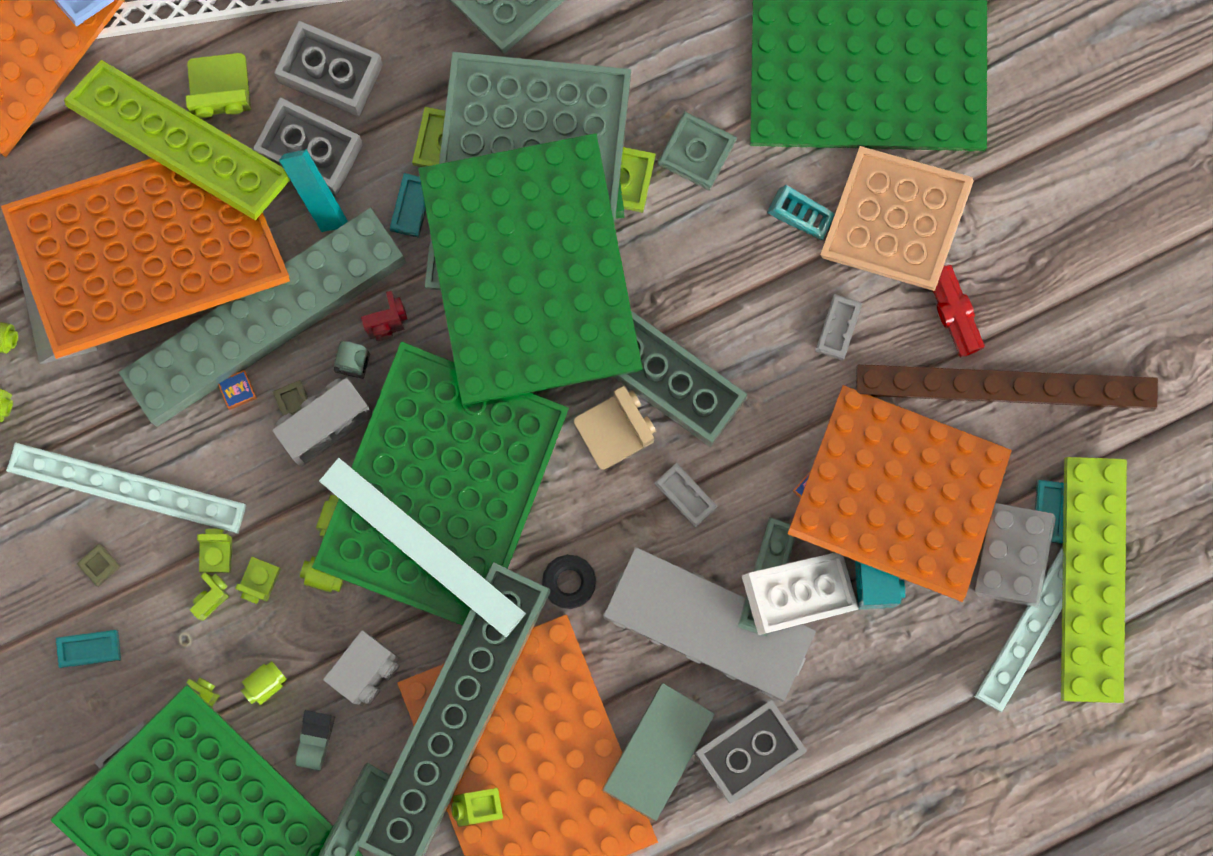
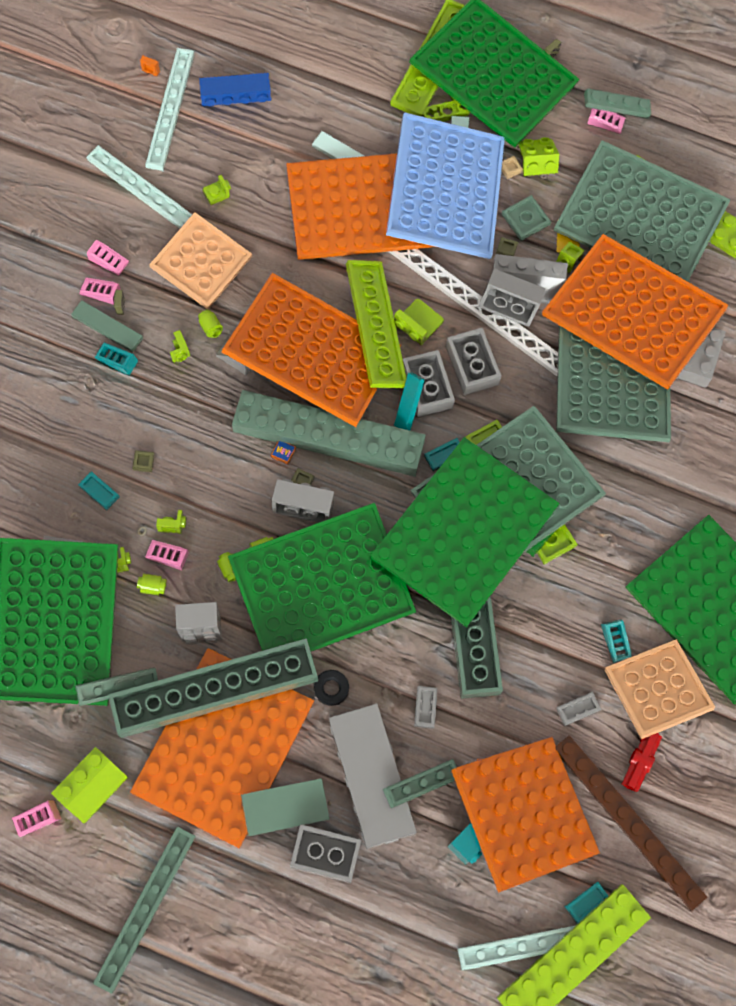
camera: 40 degrees right, 10 degrees down
(126, 488) = (192, 443): light aqua tile -> none
(215, 551) = (196, 508): lime bracket -> none
(258, 581) = (200, 539): lime bracket -> none
(264, 624) = (175, 549): none -> bright pink slope
(314, 740) = (145, 632): leg -> none
(351, 360) = (345, 490): sand green leg -> none
(384, 323) = (377, 489): dark red bracket -> none
(422, 547) = (283, 599): light aqua tile -> none
(477, 807) = (178, 739): lime bracket -> none
(615, 428) = (426, 643): tan bracket -> none
(697, 150) = (598, 563): sand green plate -> none
(799, 592) = (428, 806): white plate -> none
(1015, 555) = (548, 902): light grey brick -> none

